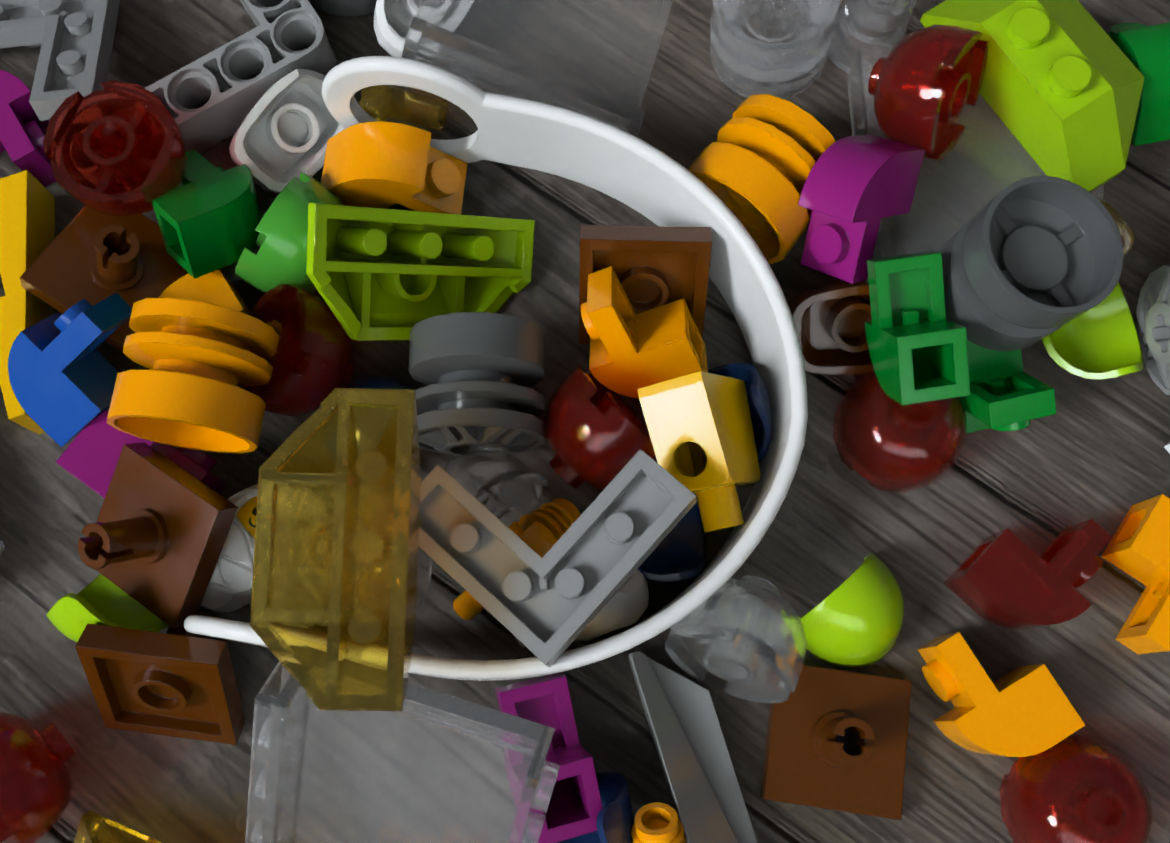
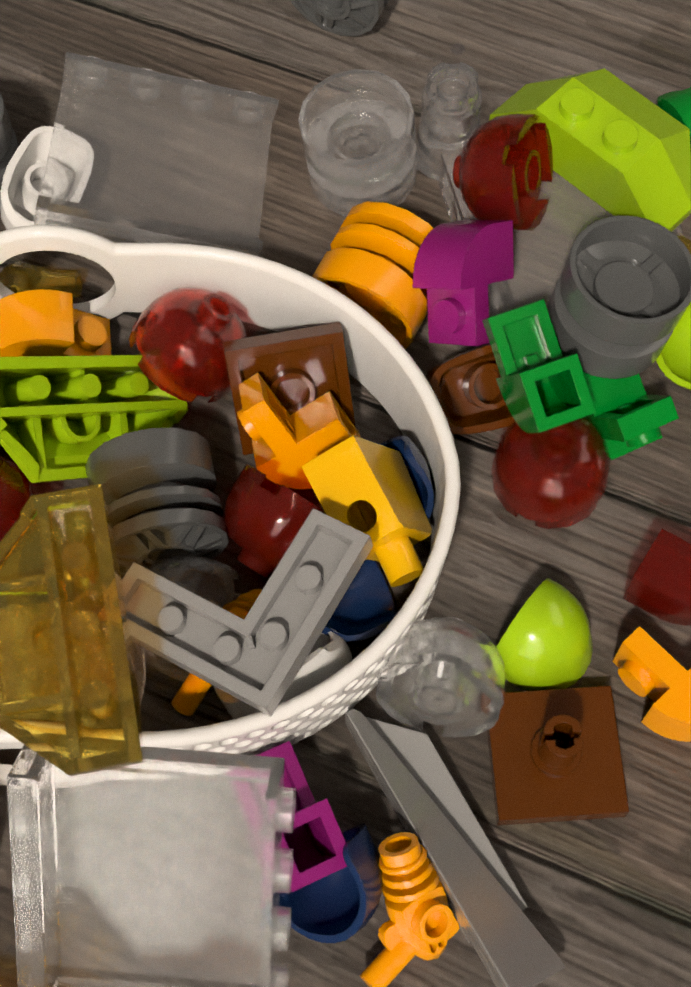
camera: 10 degrees left, 10 degrees down
(540, 211) = (184, 341): none -> clear red cylinder

